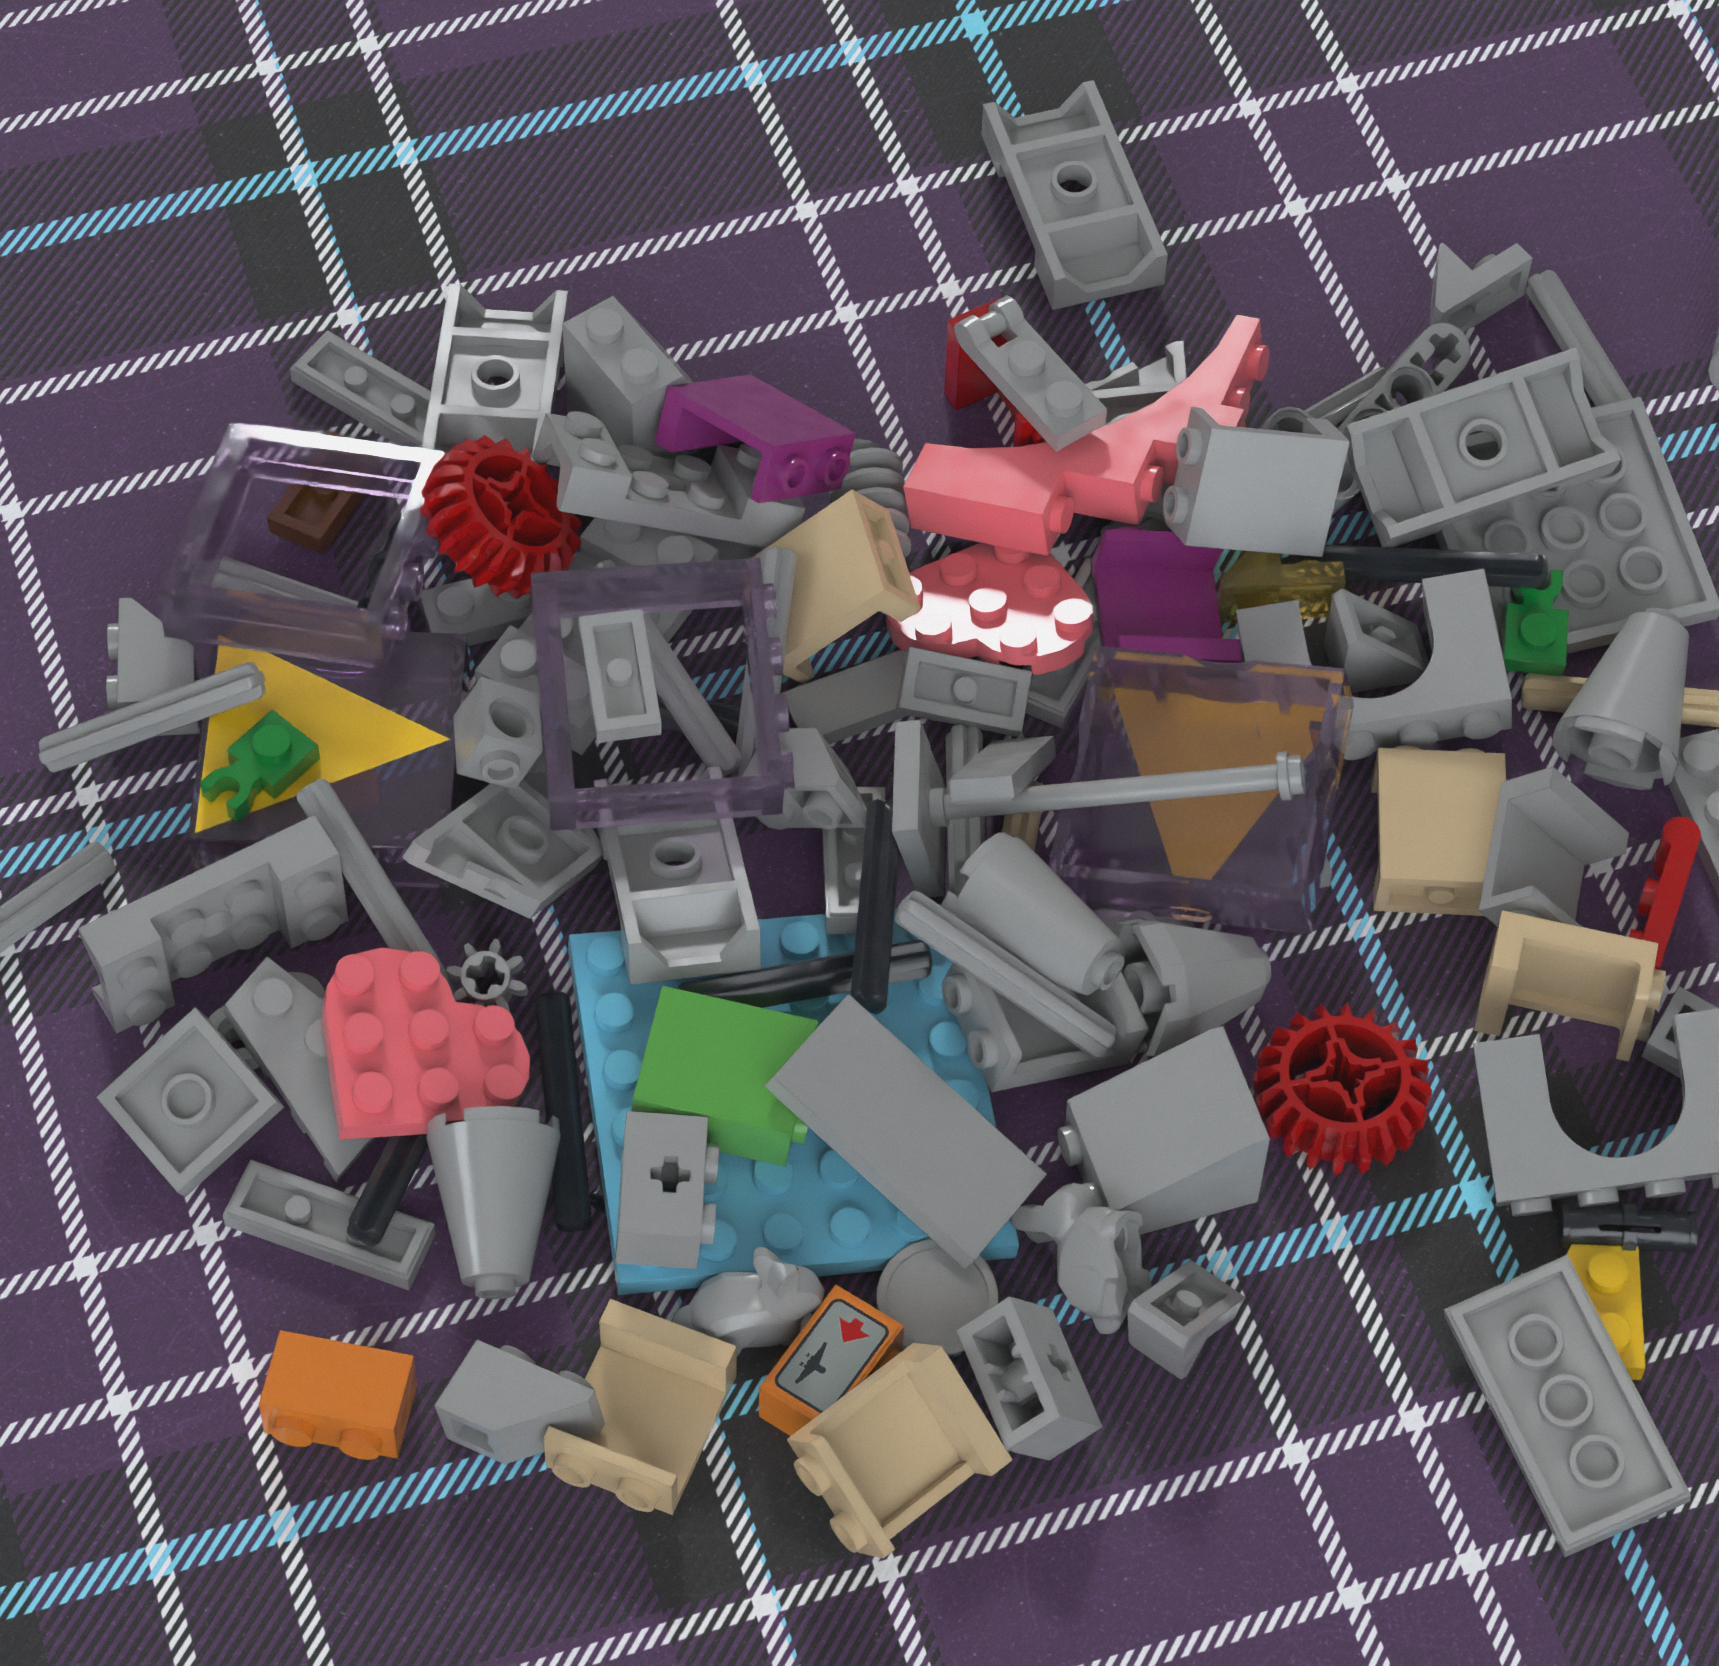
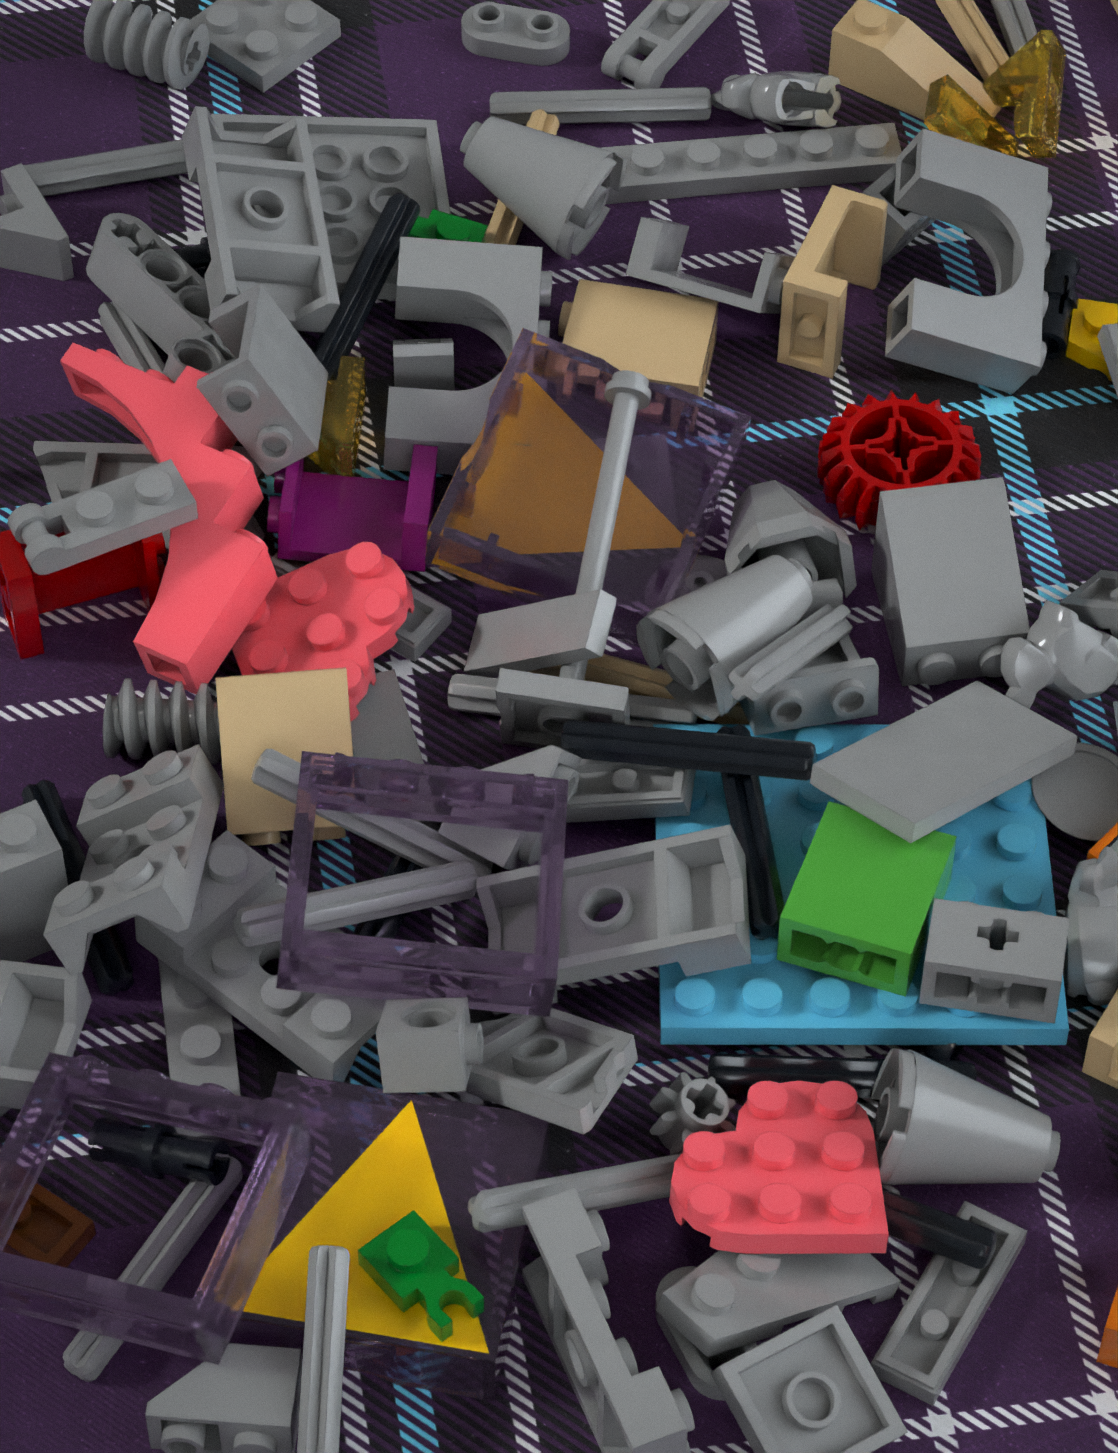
camera: 80 degrees left, 5 degrees down
(498, 515) = (150, 1009): red gear -> none
(619, 675) = (431, 883): light grey plate -> none
(798, 445) = (94, 752): magenta panel -> none
(963, 691) = (420, 672): light grey plate -> none
(1663, 896) = (735, 212): red plate -> none

